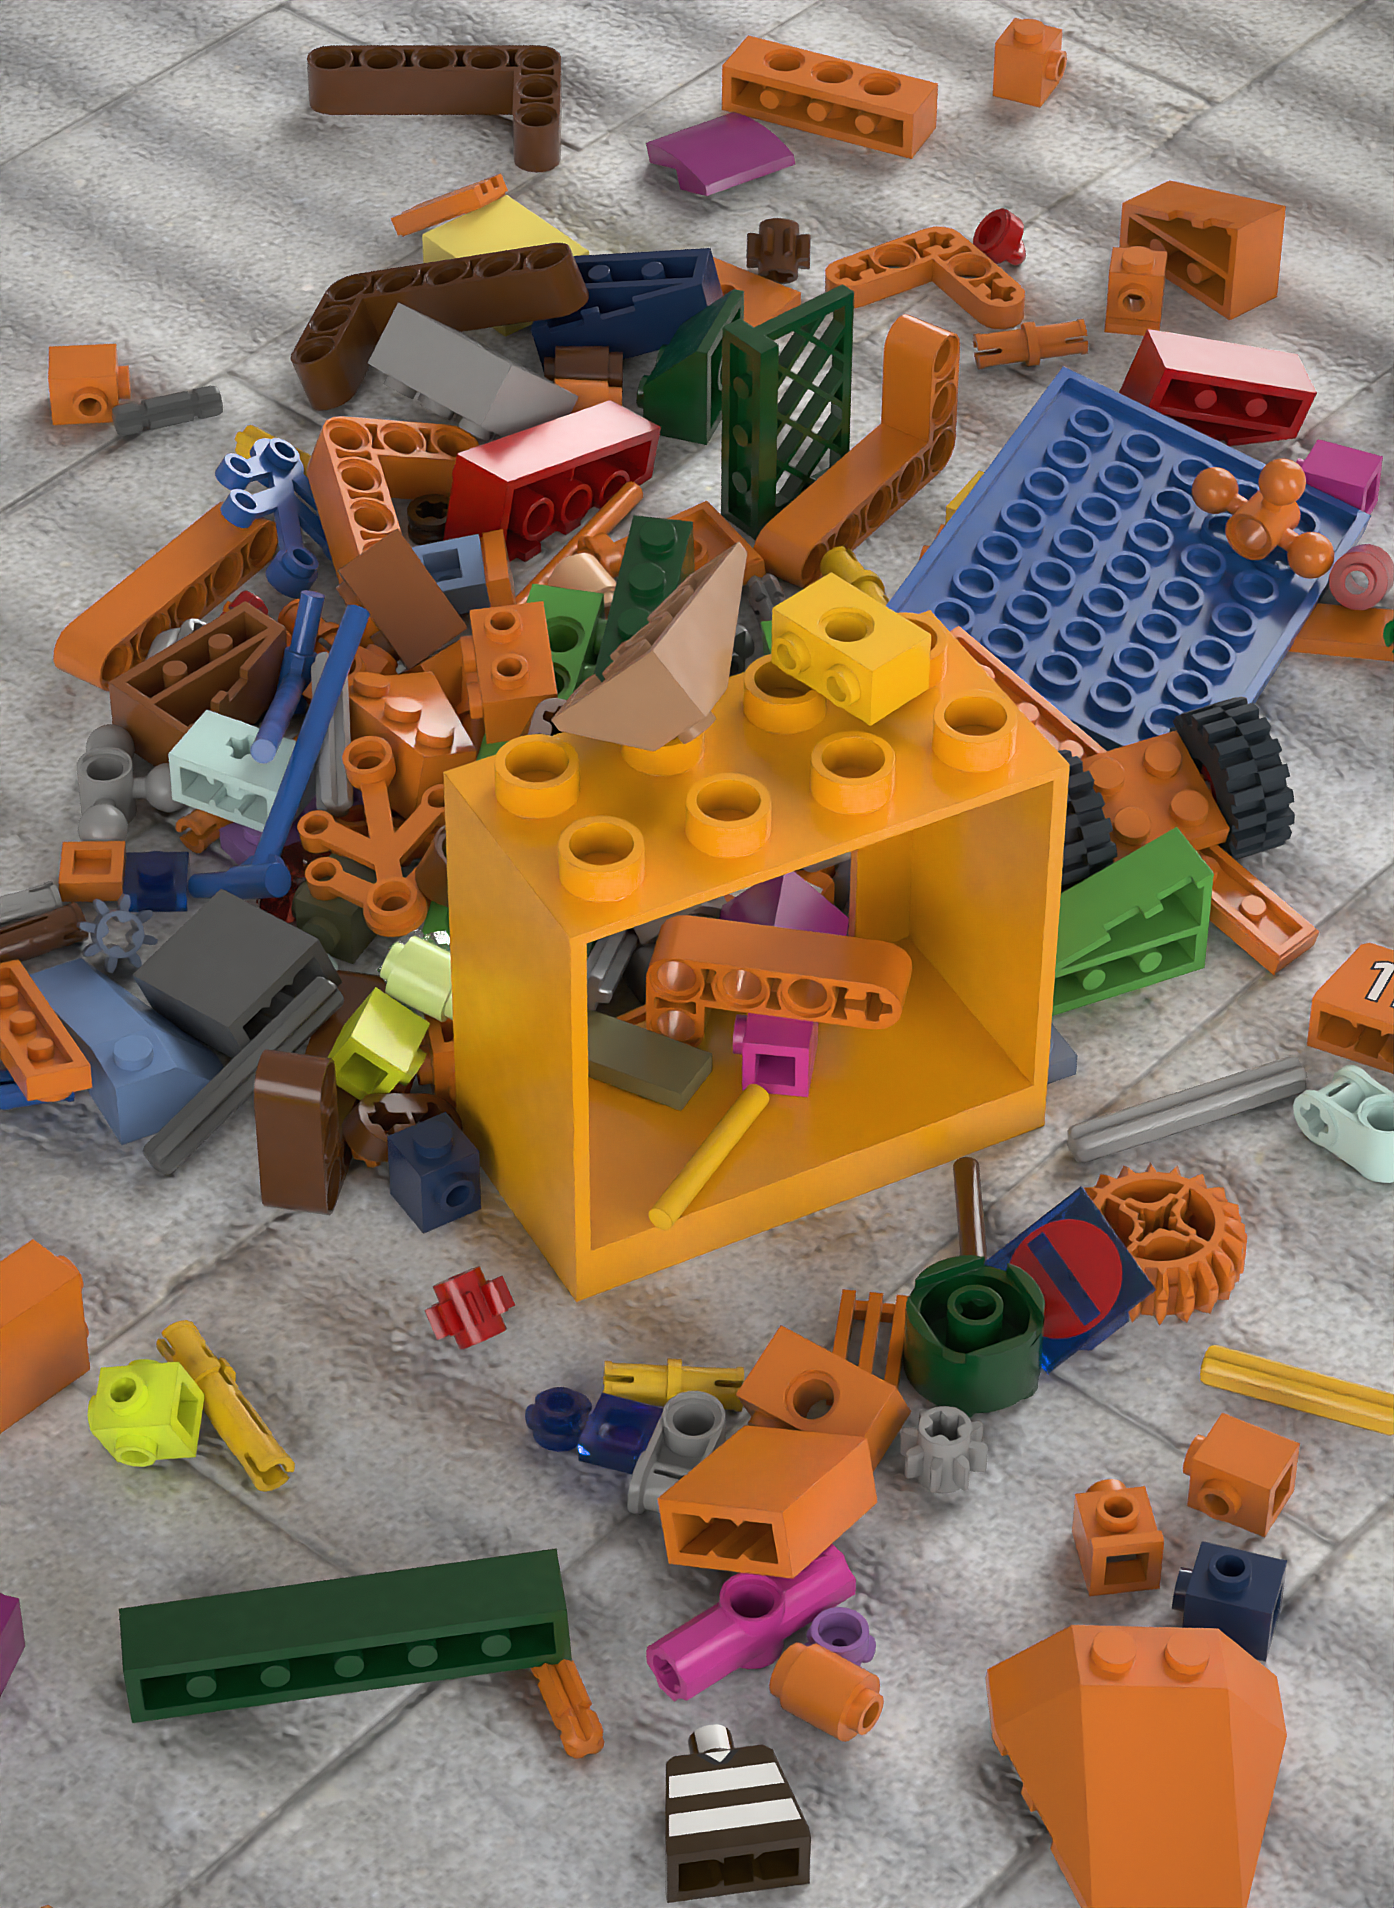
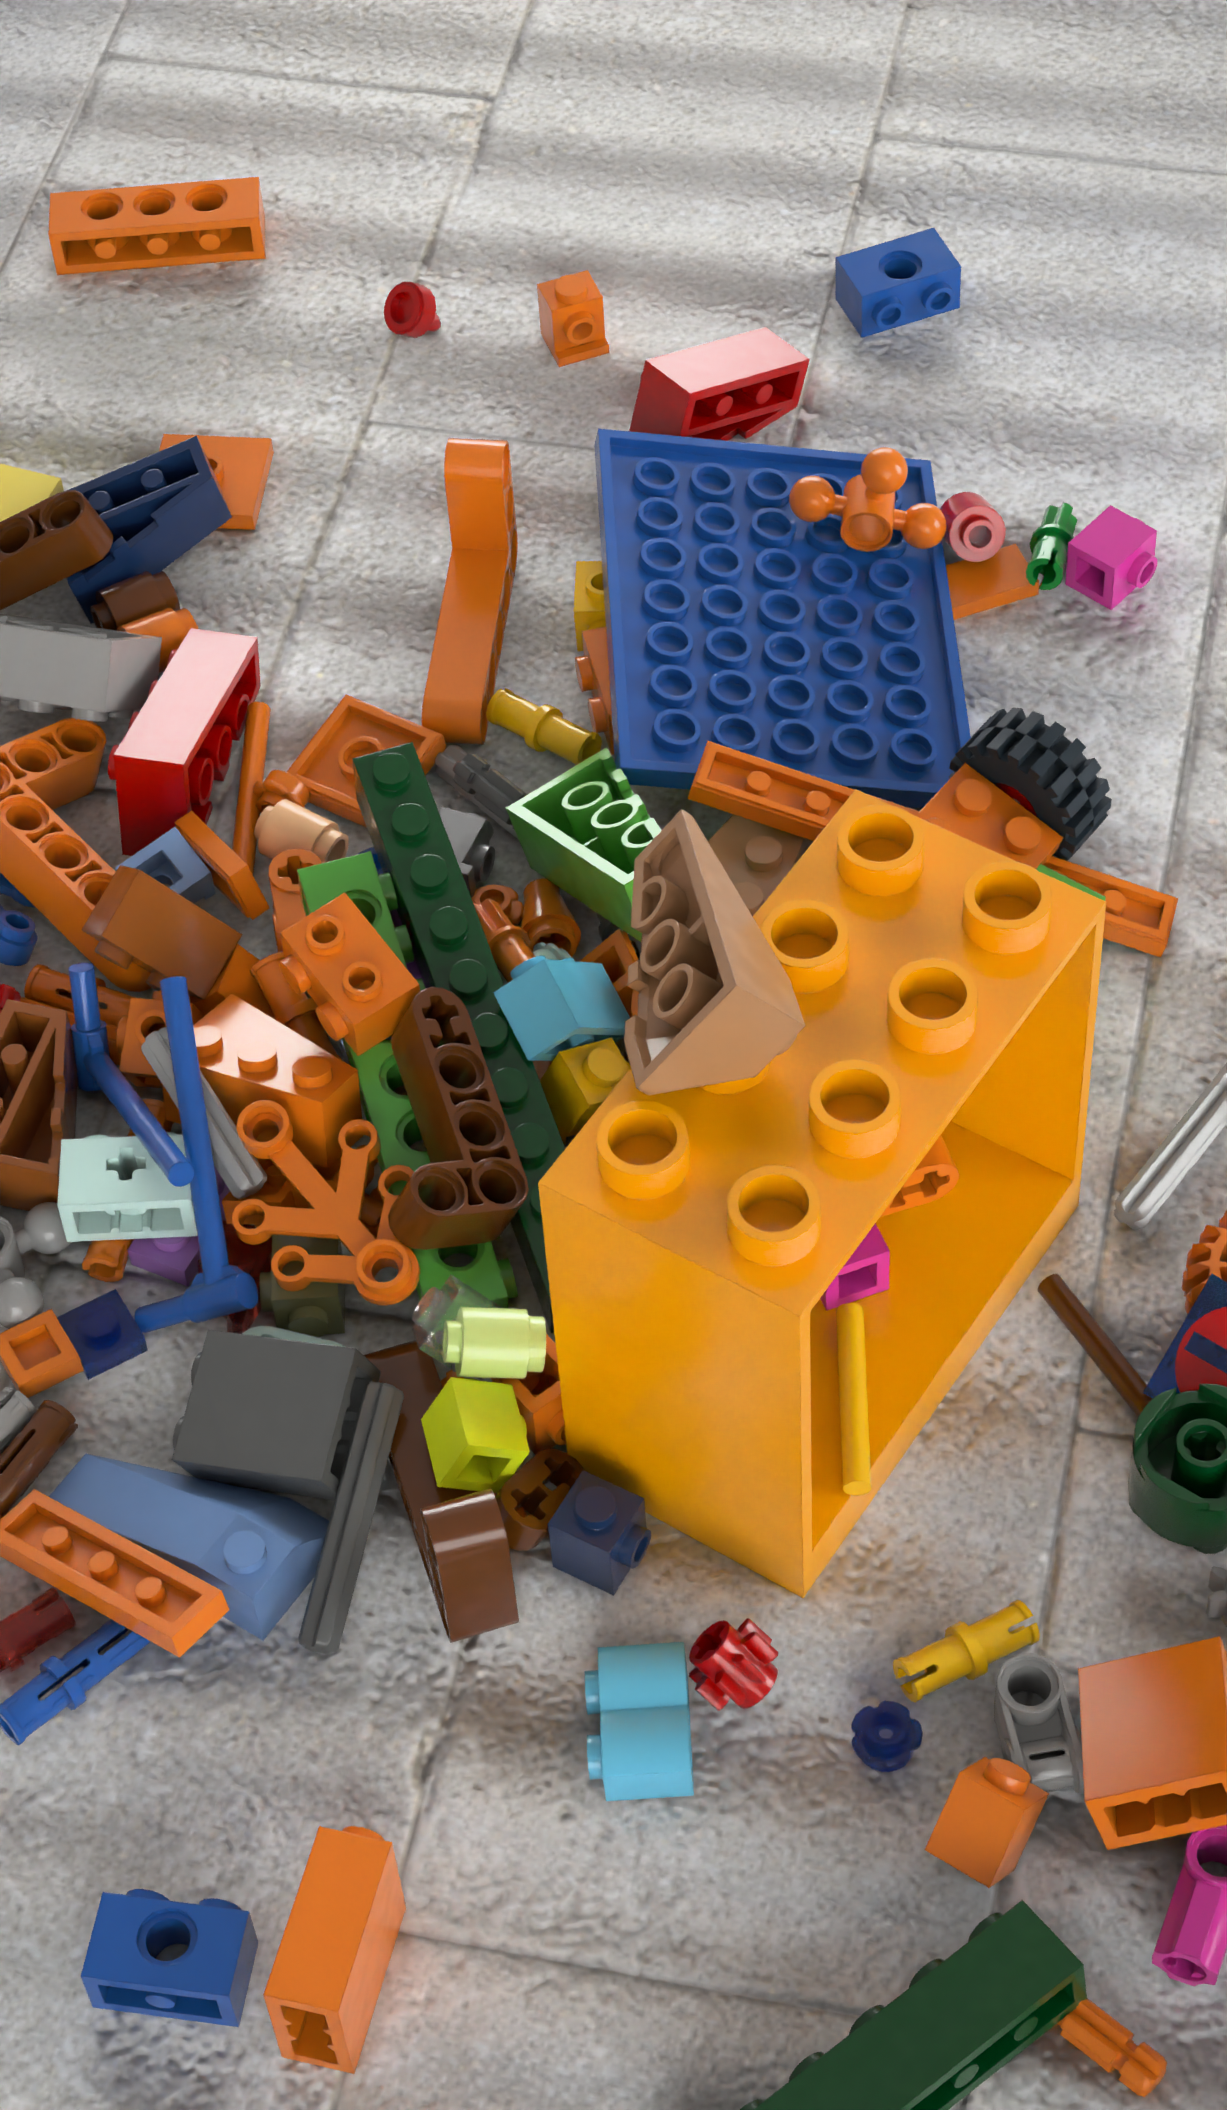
camera: 25 degrees left, 10 degrees up
(134, 936) = (124, 1399): sand blue gear -> none
(146, 1412) = (543, 1945): neon yellow brick -> none
(227, 1407) = (561, 1880): yellow pin -> none
(366, 1317) = (643, 1722): none -> medium azure brick
(427, 518) = (91, 810): dark brown bush -> none
(584, 1496) = (987, 1820): none -> orange brick
(617, 1433) = (959, 1726): clear blue plate -> none
(686, 382) = (240, 563): dark green slope -> none
(720, 153) = (96, 323): magenta slope -> none
(755, 418) = (385, 582): dark green fence -> none
(778, 250) = (226, 404): reddish brown gear -> none
(800, 1373) = (1083, 1582): orange brick -> none
(850, 648) = (861, 878): yellow brick -> none
(873, 1313) = (1081, 1475): orange tile -> none
(936, 257) = (440, 374): orange beam -> none
(1028, 62) = (315, 122): orange brick -> none
(1030, 344) = (514, 406): orange pin -> none
(1215, 242) = (619, 236): orange wedge -> none
(1344, 473) = (879, 426): dark pink brick -> none

